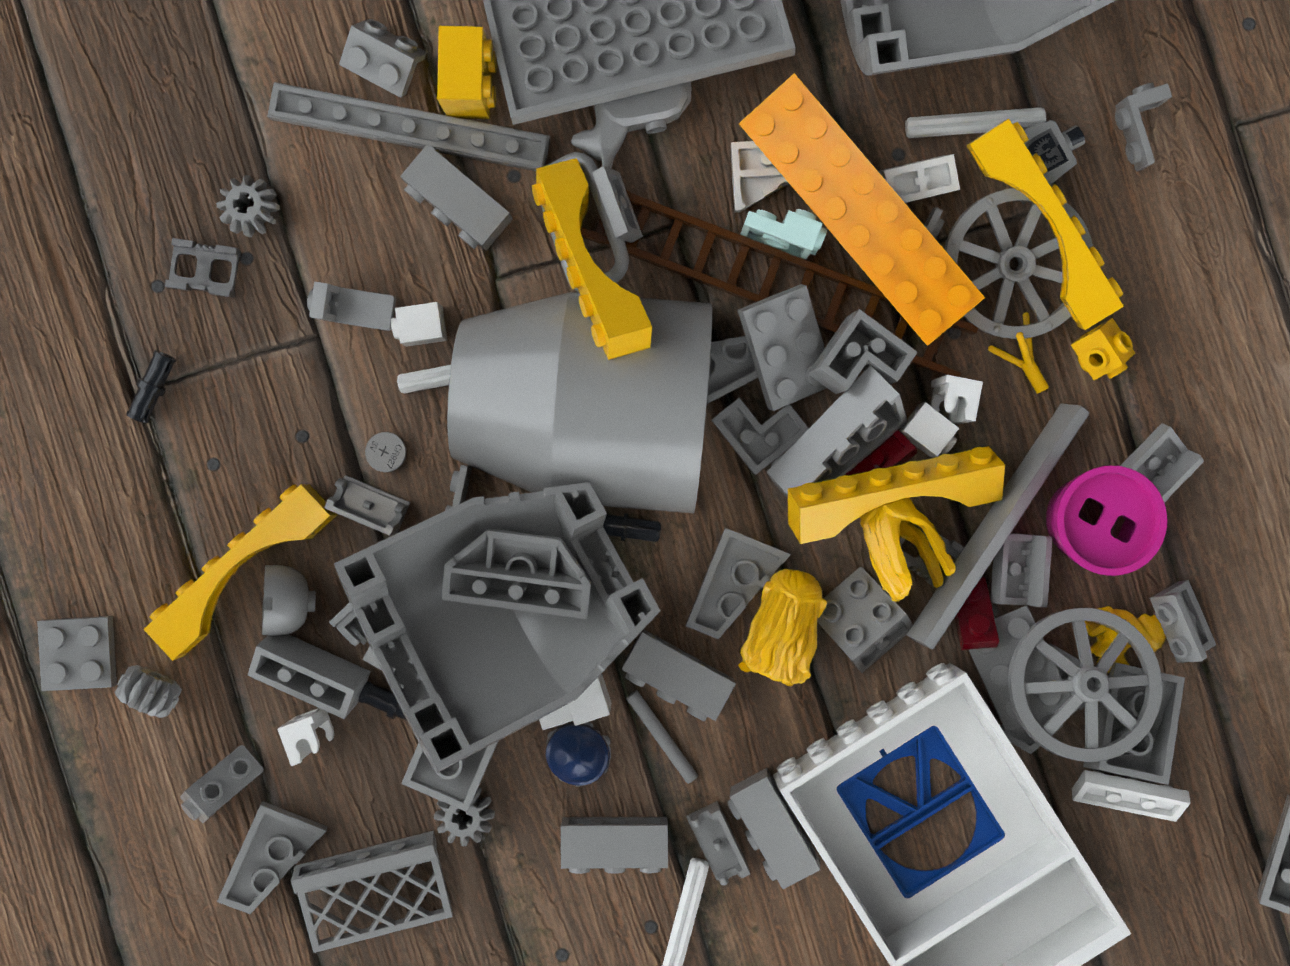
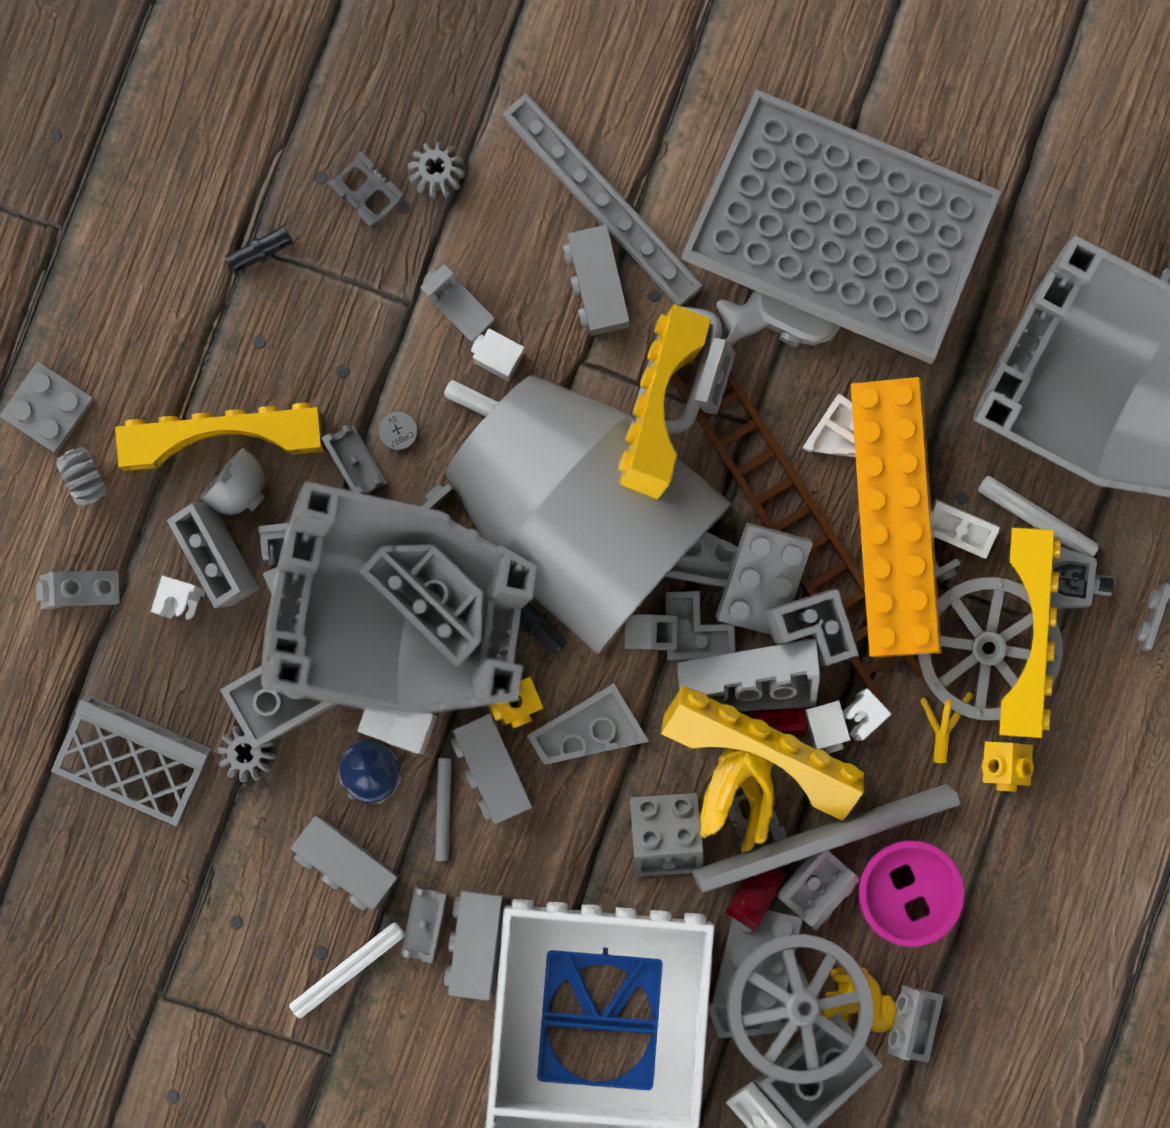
camera: 35 degrees right, 5 degrees down
(268, 852) = (72, 670): light grey wing -> none
(381, 56) = (621, 133): light grey bracket -> none
(382, 700) = (252, 620): black pin -> none
(465, 71) = (674, 193): yellow brick -> none
(668, 600) = (527, 701): none -> yellow brick
(726, 462) = (651, 632): none -> light grey brick
(785, 628) = (601, 792): yellow hair -> none
(796, 235) = (833, 499): light aqua plate -> none
(1164, 460) = (989, 887): light grey bracket -> none

